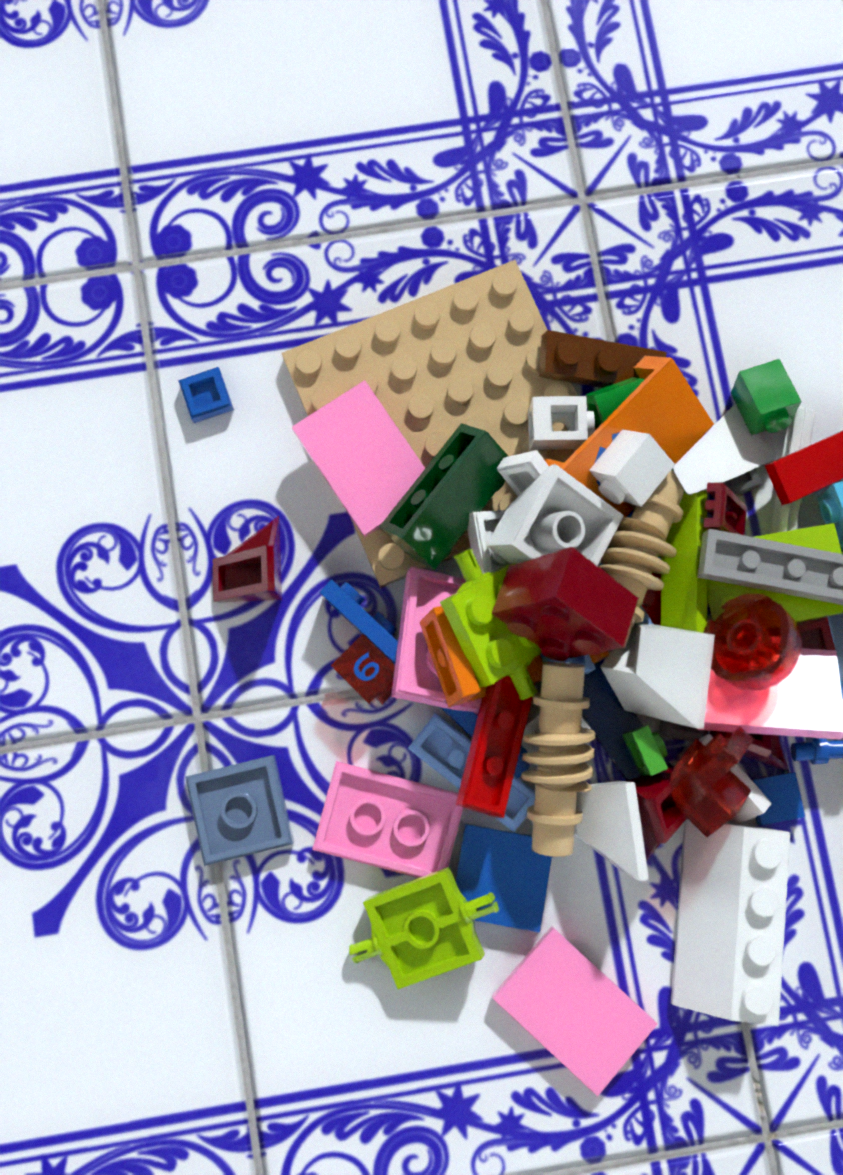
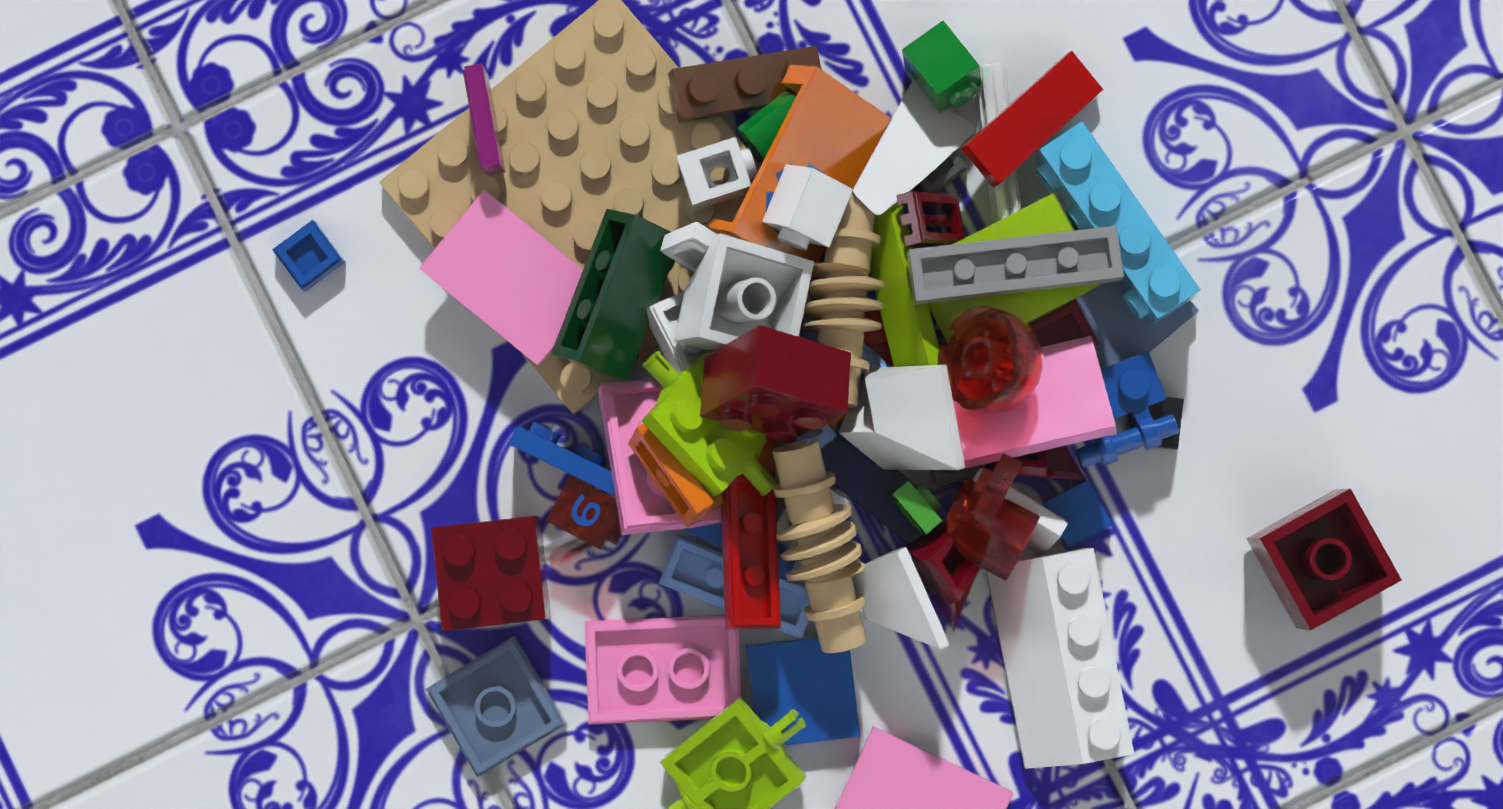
camera: 10 degrees left, 5 degrees up
(251, 568) = (423, 437): dark red slope -> none
(270, 695) = (491, 573): none -> dark red brick
(382, 324) = (483, 119): none -> magenta tile

